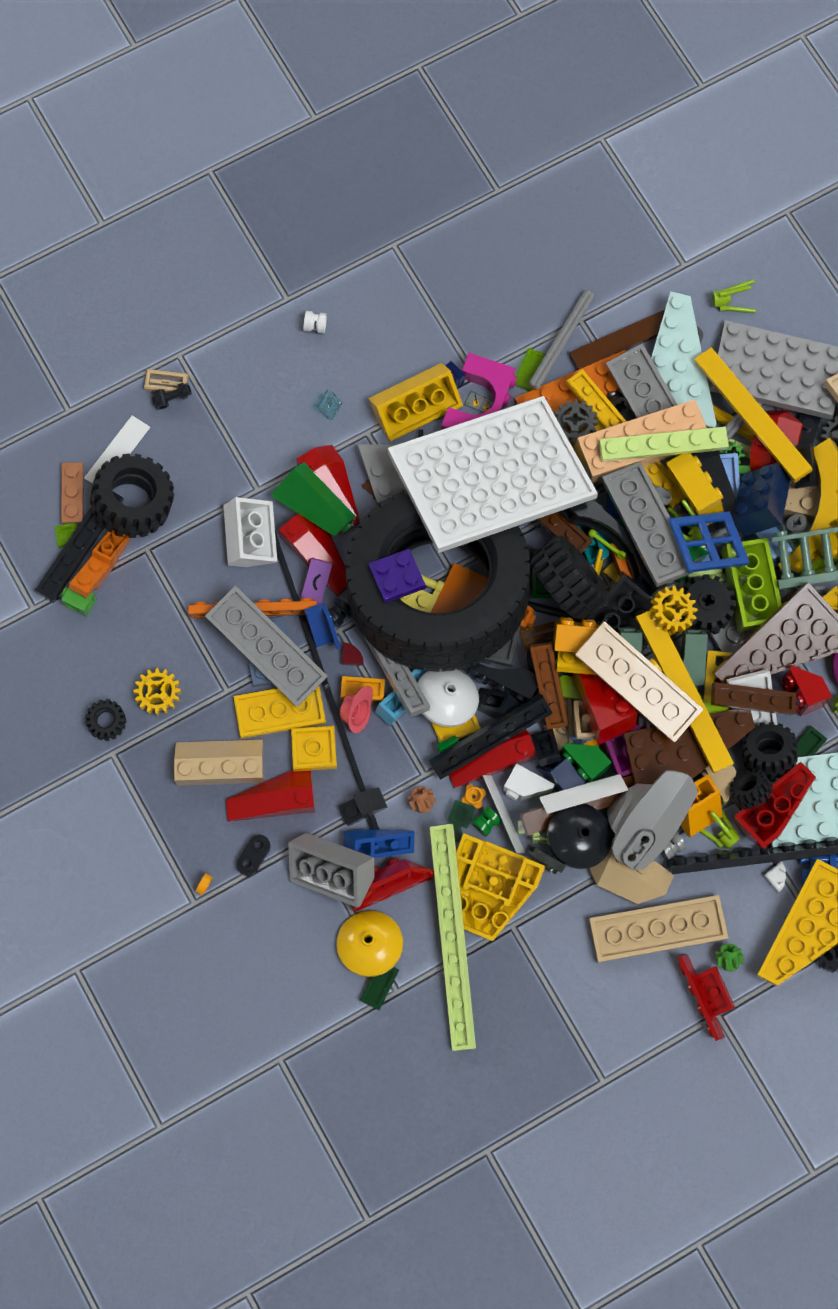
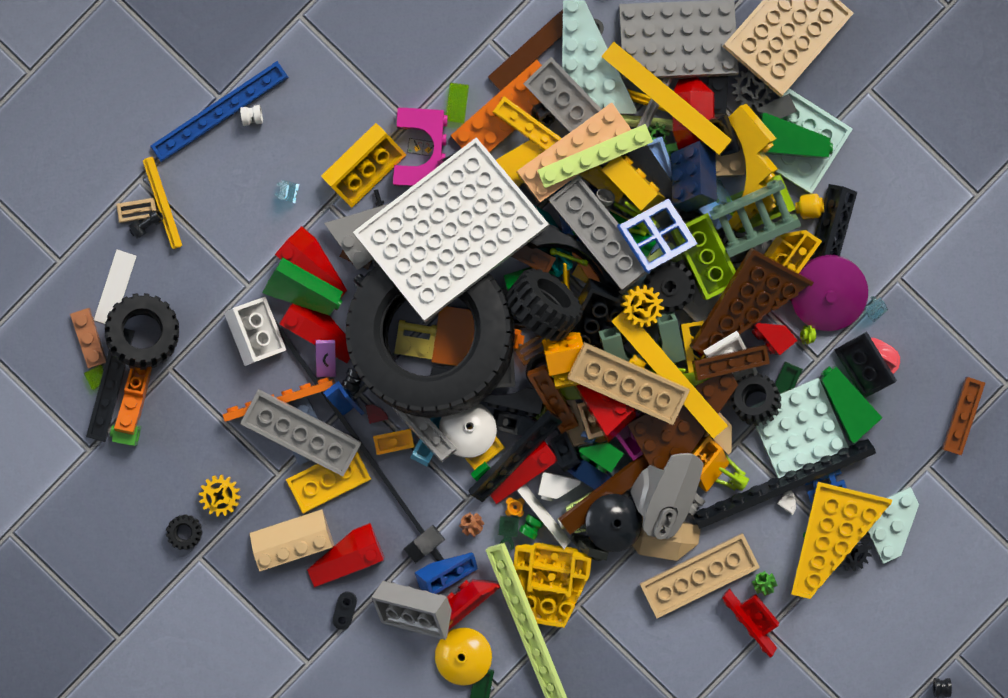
camera: 10 degrees left, 15 degrees up
(195, 399) = (162, 202): none -> yellow axle
(204, 883) = (311, 647): light orange tile -> none
(282, 311) = (219, 111): none -> blue tile
(313, 748) = (367, 505): yellow tile -> none
(356, 709) = (394, 464): coral piece -> none
(397, 576) = (395, 352): dark purple plate -> none
(458, 375) = (390, 128): clear blue tile -> none
(561, 340) = (477, 67): light grey axle -> none
(566, 421) = (512, 158): dark grey gear -> none
(583, 793) = (607, 486): white sticker -> none
(750, 789) = (753, 445): black tyre -> none
(769, 820) = (771, 450): red wedge -> none
(798, 523) = (734, 191): light grey wheel -> none

